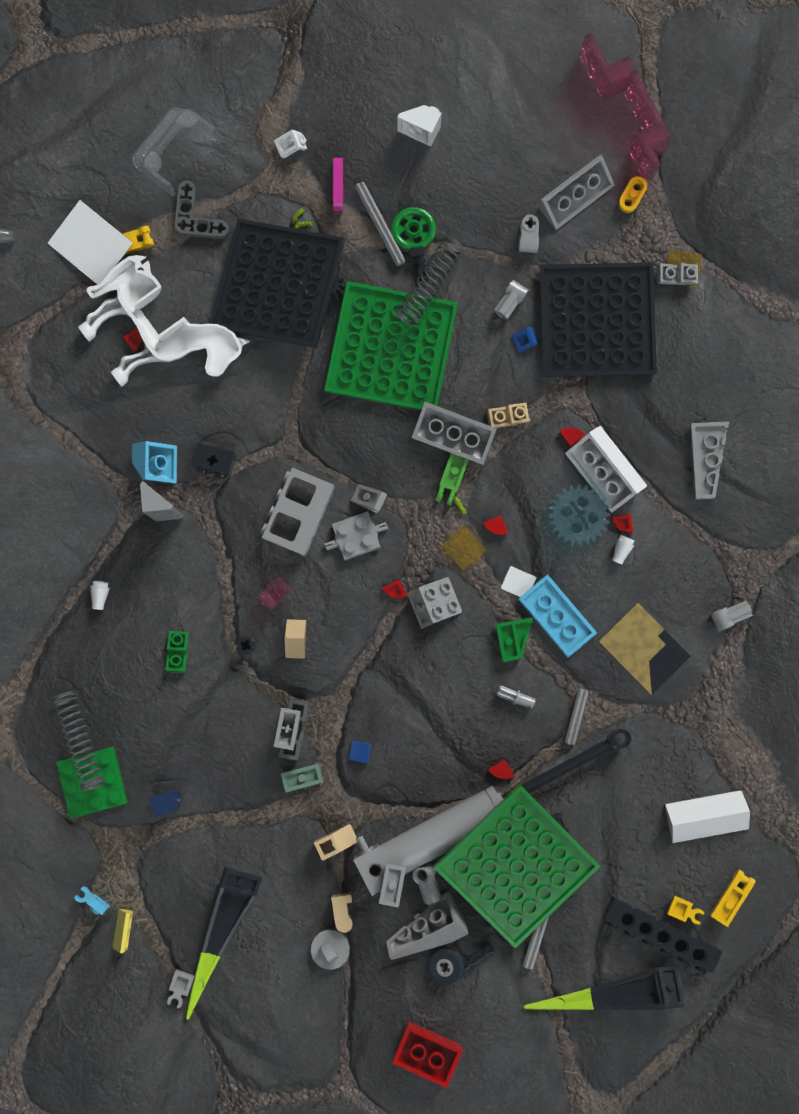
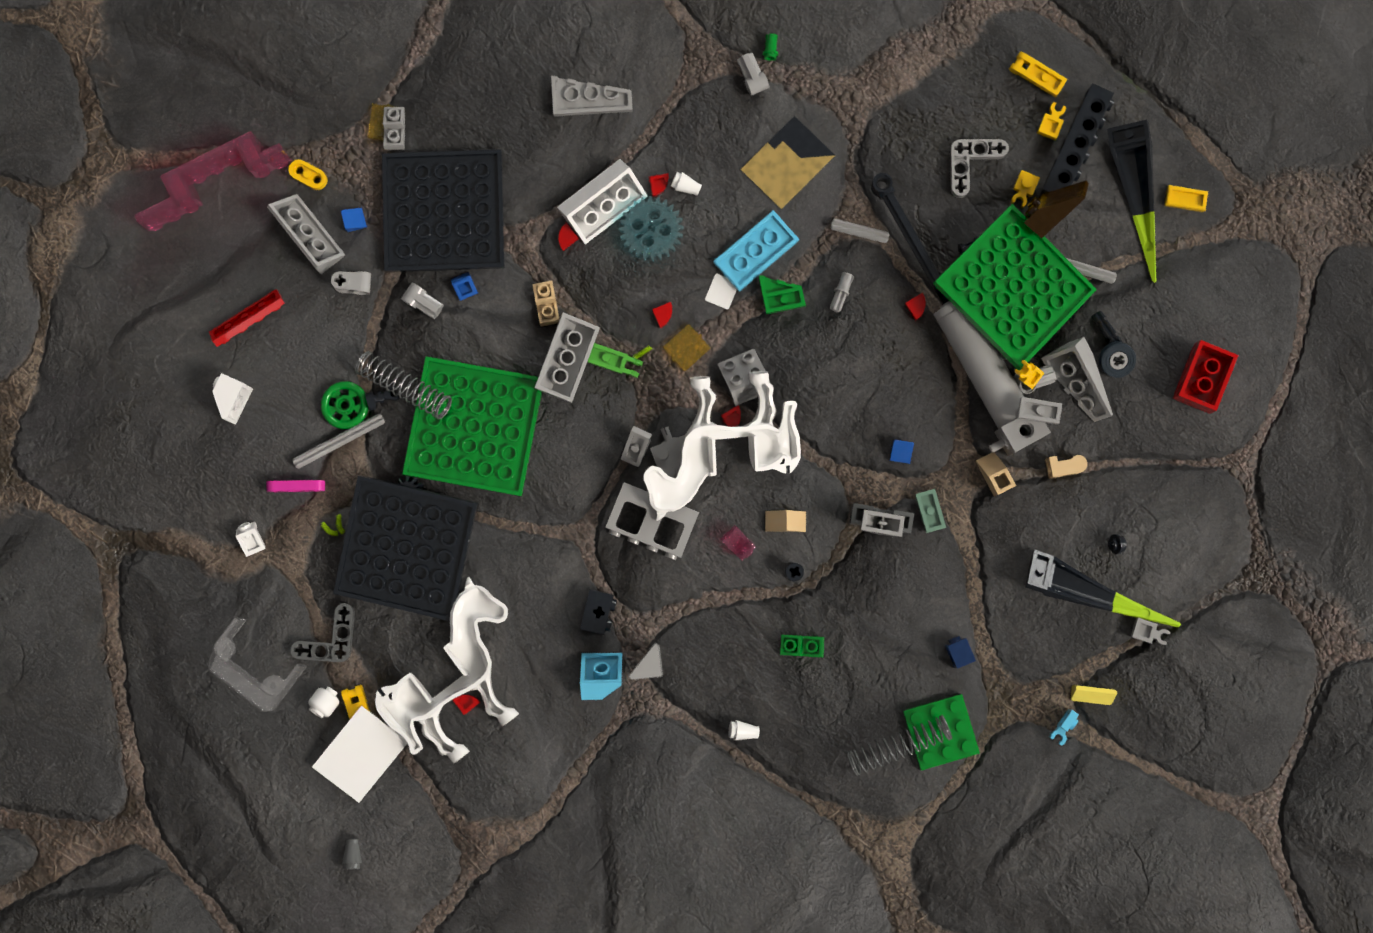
camera: 90 degrees left, 0 degrees up
(138, 210) = (323, 702): none -> white head
(265, 959) = (1117, 544): none -> black plate
(330, 949) = (1103, 478): light grey tile -> none
(359, 554) = (698, 454): none -> white animal
(429, 877) = (1029, 374): none -> yellow plate
(496, 139) = (247, 317): none -> red plate
(589, 236) = (353, 219): none -> blue slope
(596, 907) = (1053, 206): none -> dark brown slope
(607, 1043) = (1186, 198): none -> yellow tile
(620, 881) = (1025, 186): none -> yellow plate
(646, 821) = (964, 157): none -> light grey beam
(707, 816) = (956, 98): white slope -> none
(758, 633) = (770, 47): none -> green pin

